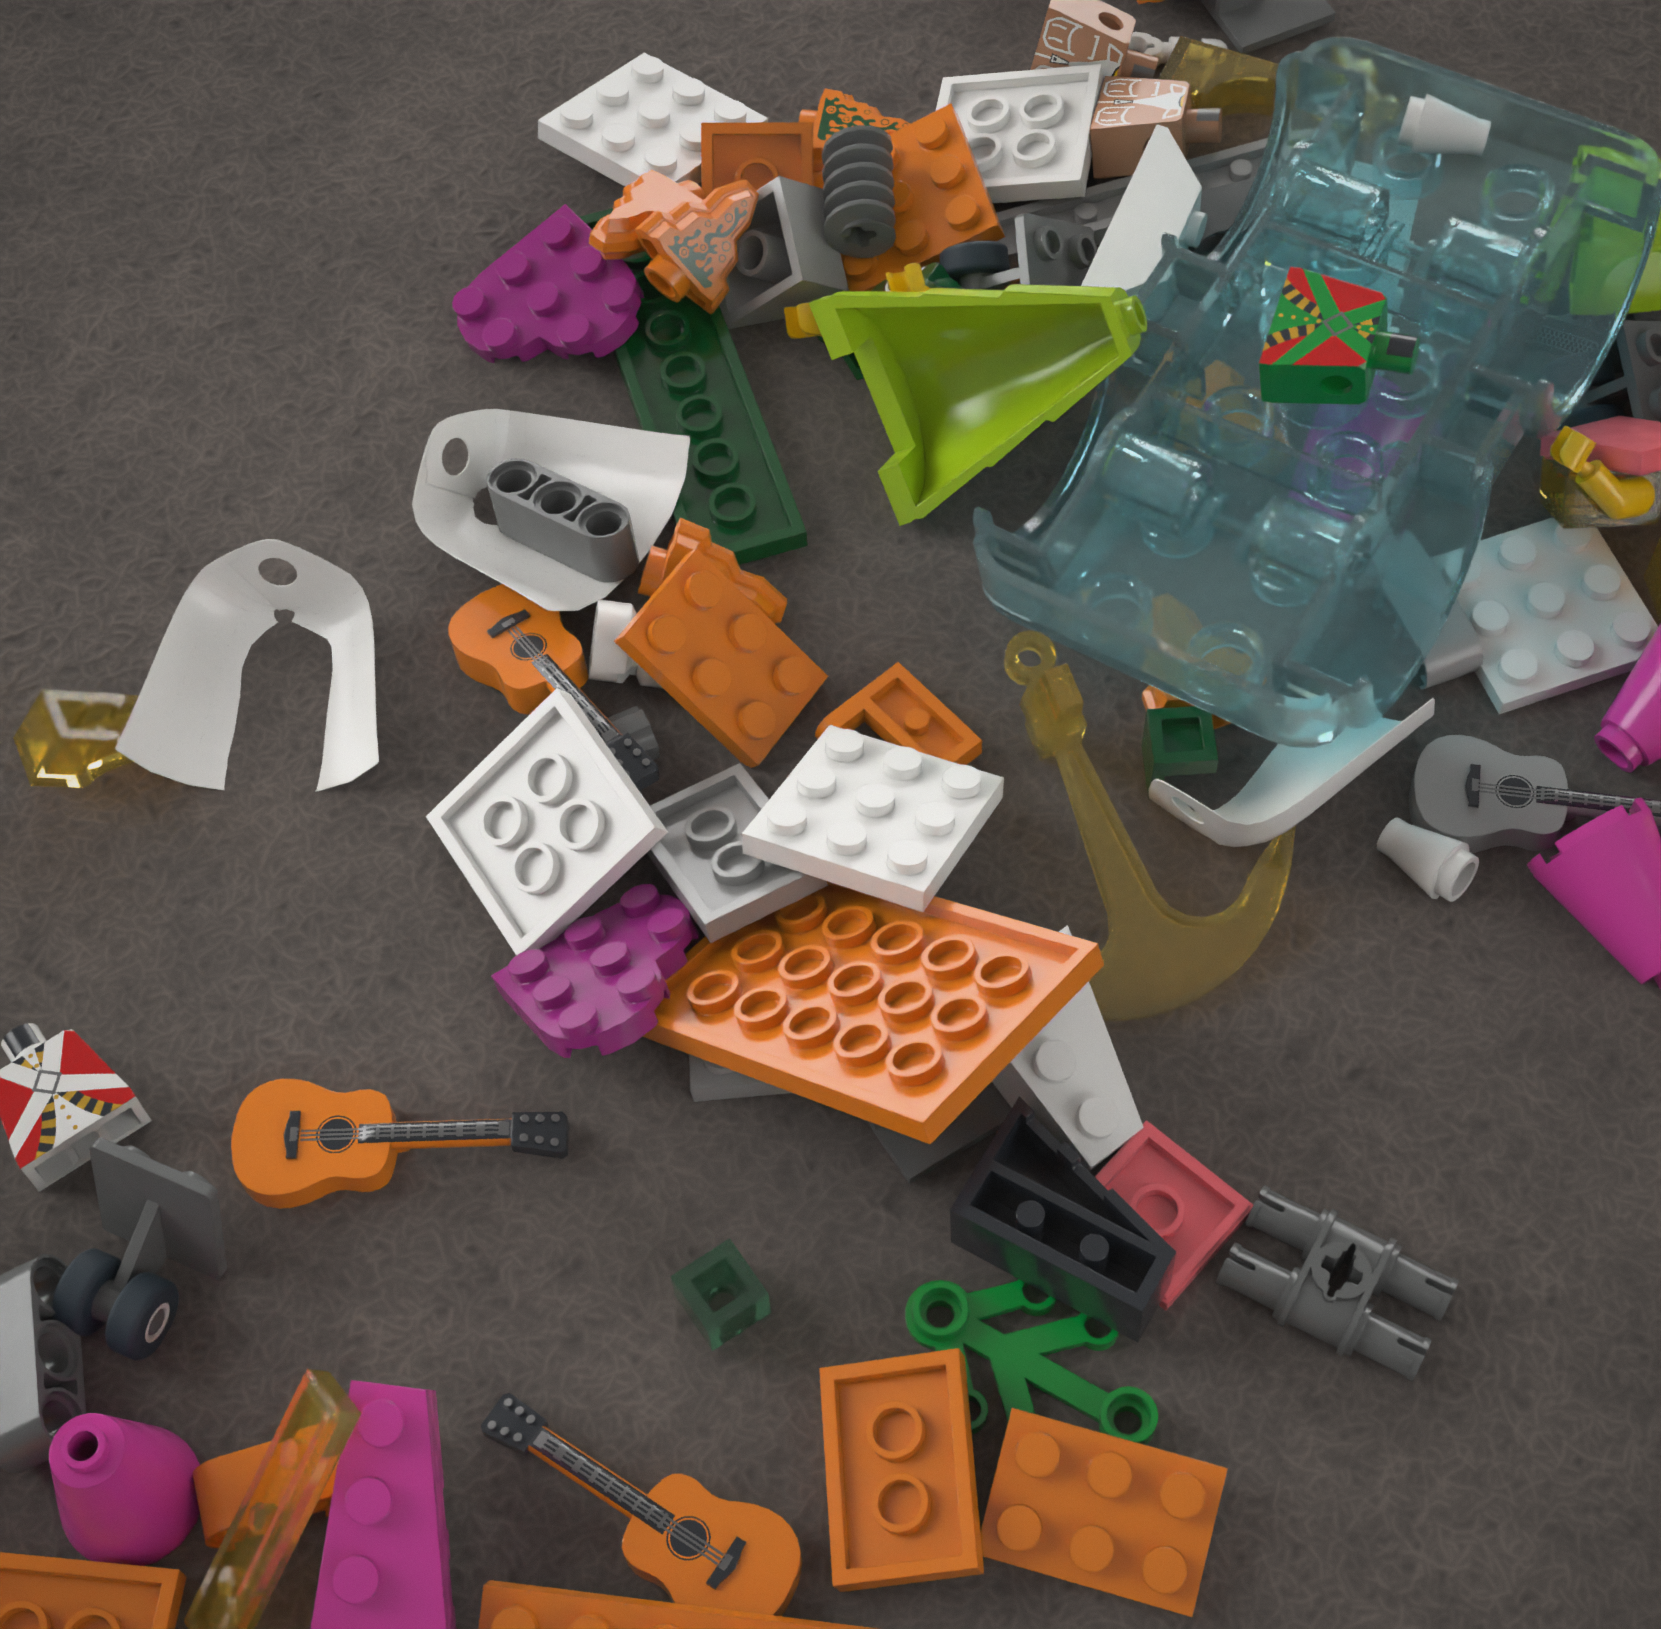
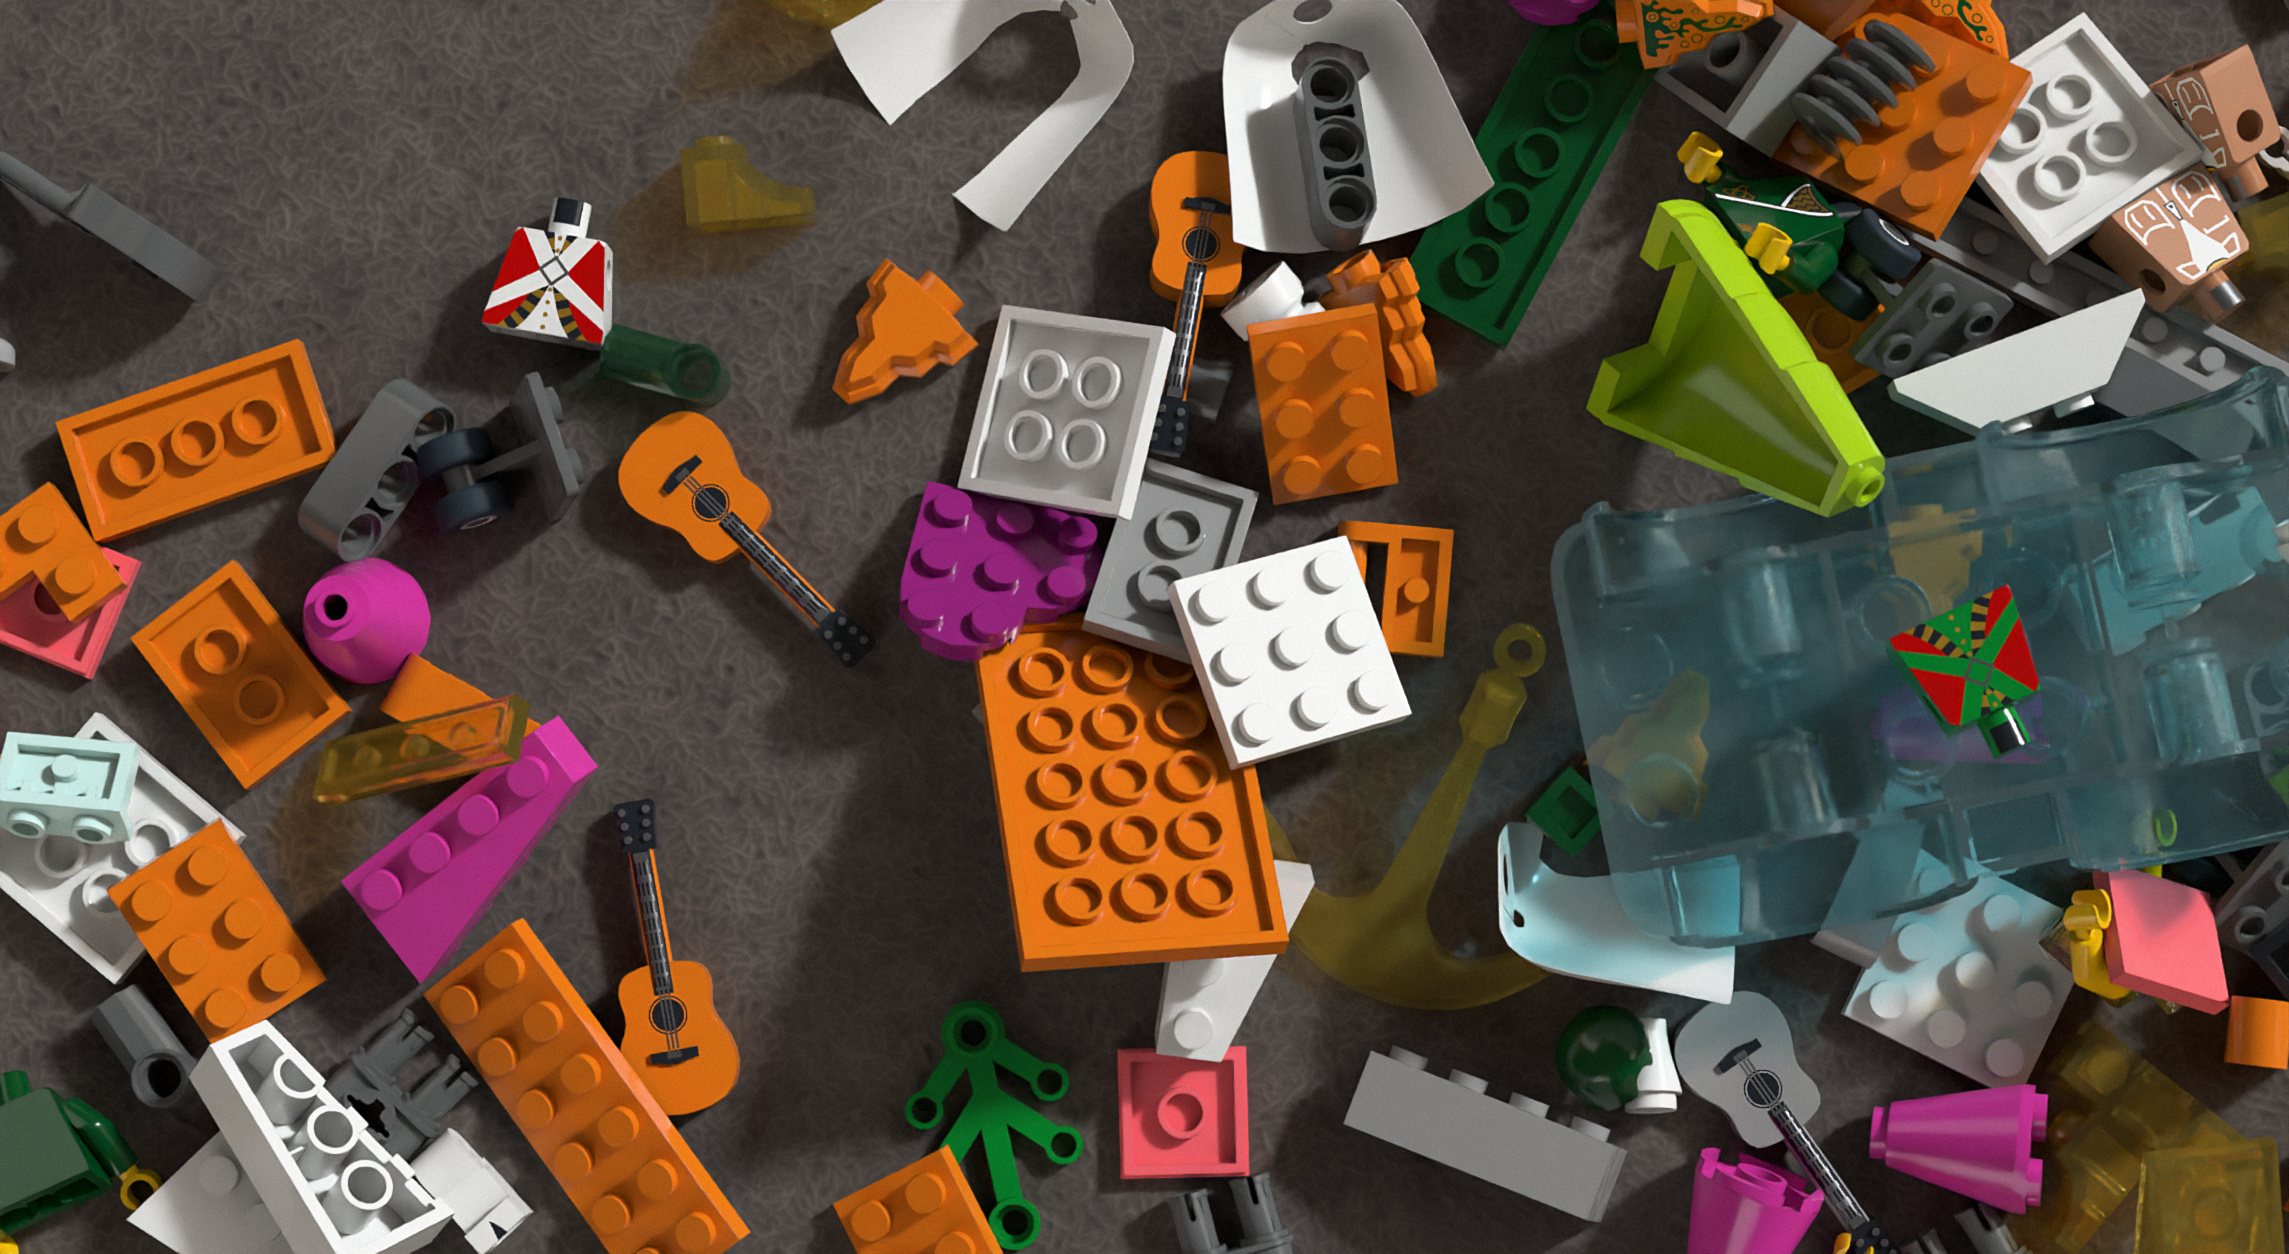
camera: 40 degrees right, 25 degrees up
(148, 919) = (731, 195): none -> clear yellow arch
(201, 1078) = (661, 365): none -> clear green piece
(369, 895) = (902, 332): none -> orange rock
(716, 1273) = (828, 861): clear green plate -> none
(900, 1471) = (839, 1108): orange plate -> none
(1060, 1229) = (1093, 1069): black wedge -> none
(1383, 994) = (1484, 1136): none -> light grey wedge
(1392, 873) = (1603, 1056): none -> dark green hair

